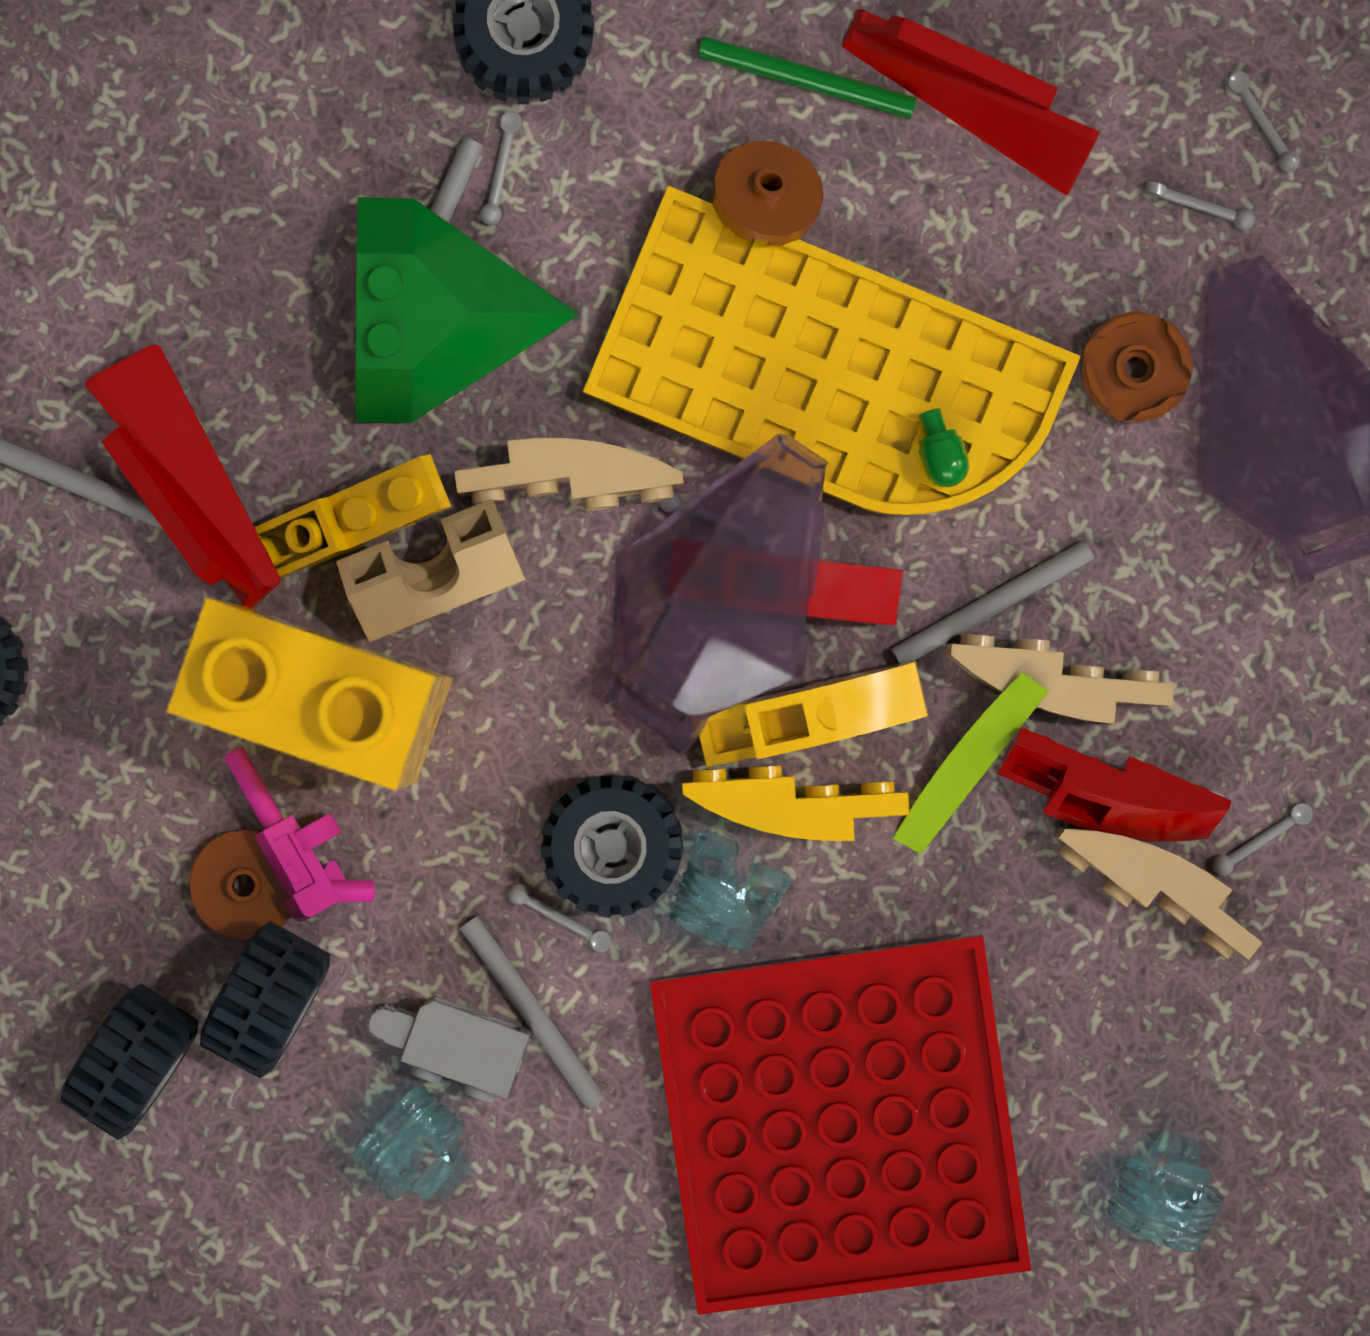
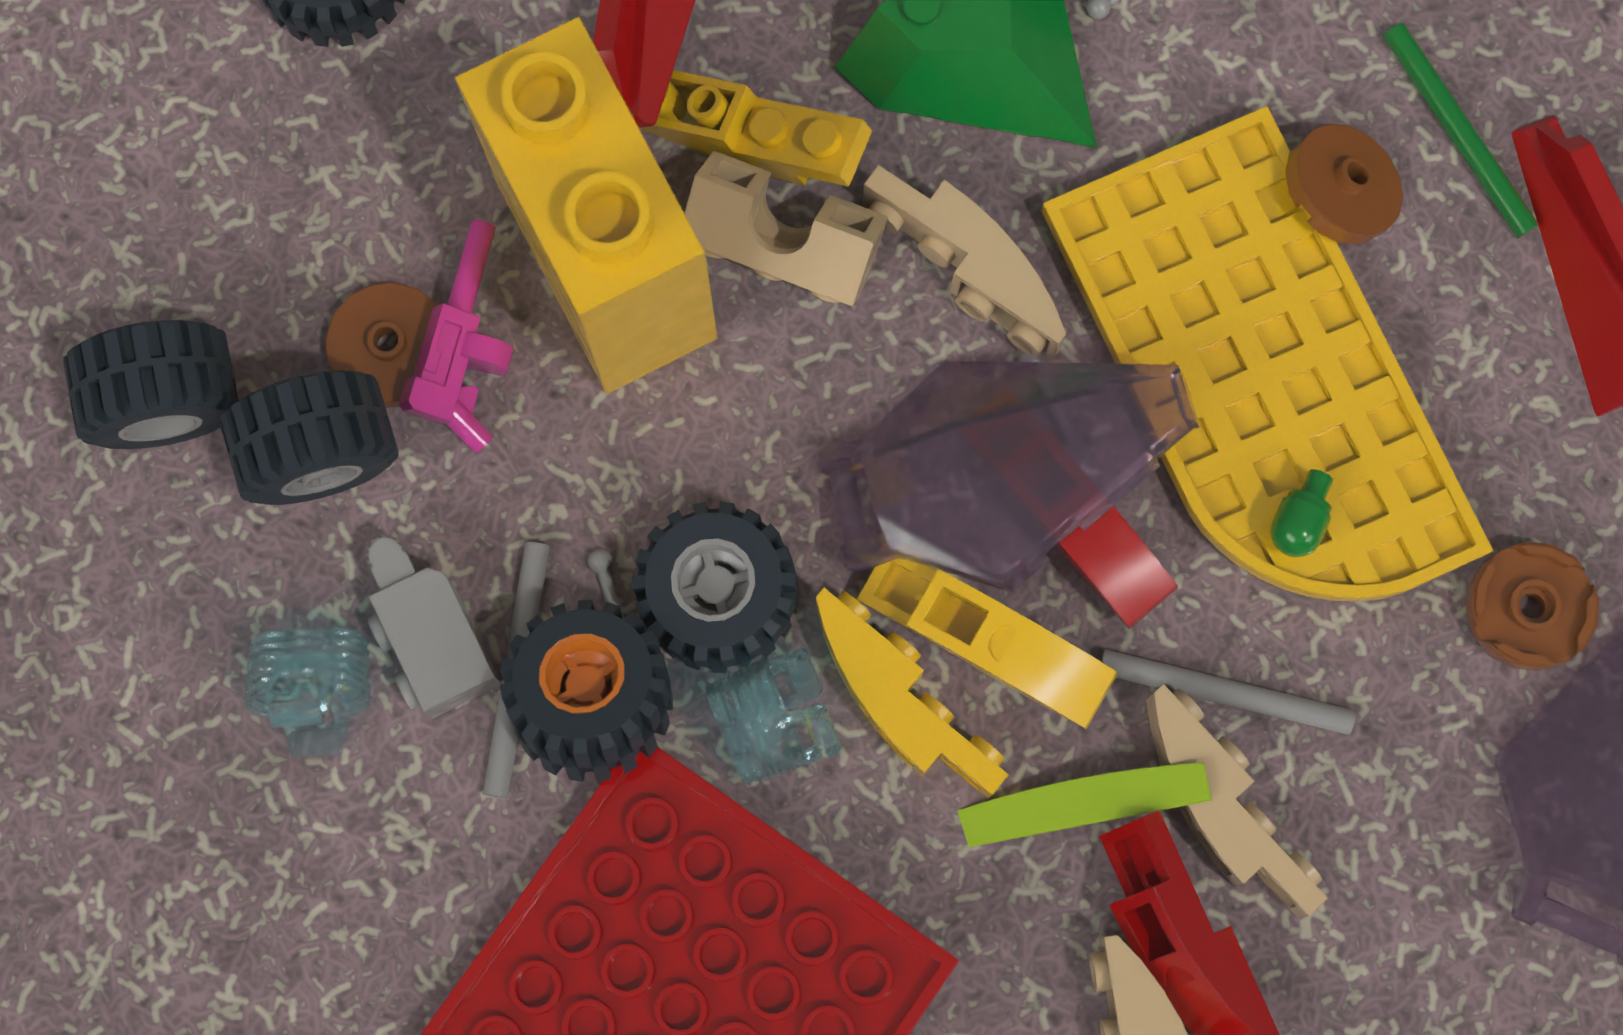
camera: 45 degrees right, 10 degrees down
(597, 989) = (587, 690): none -> black wheel

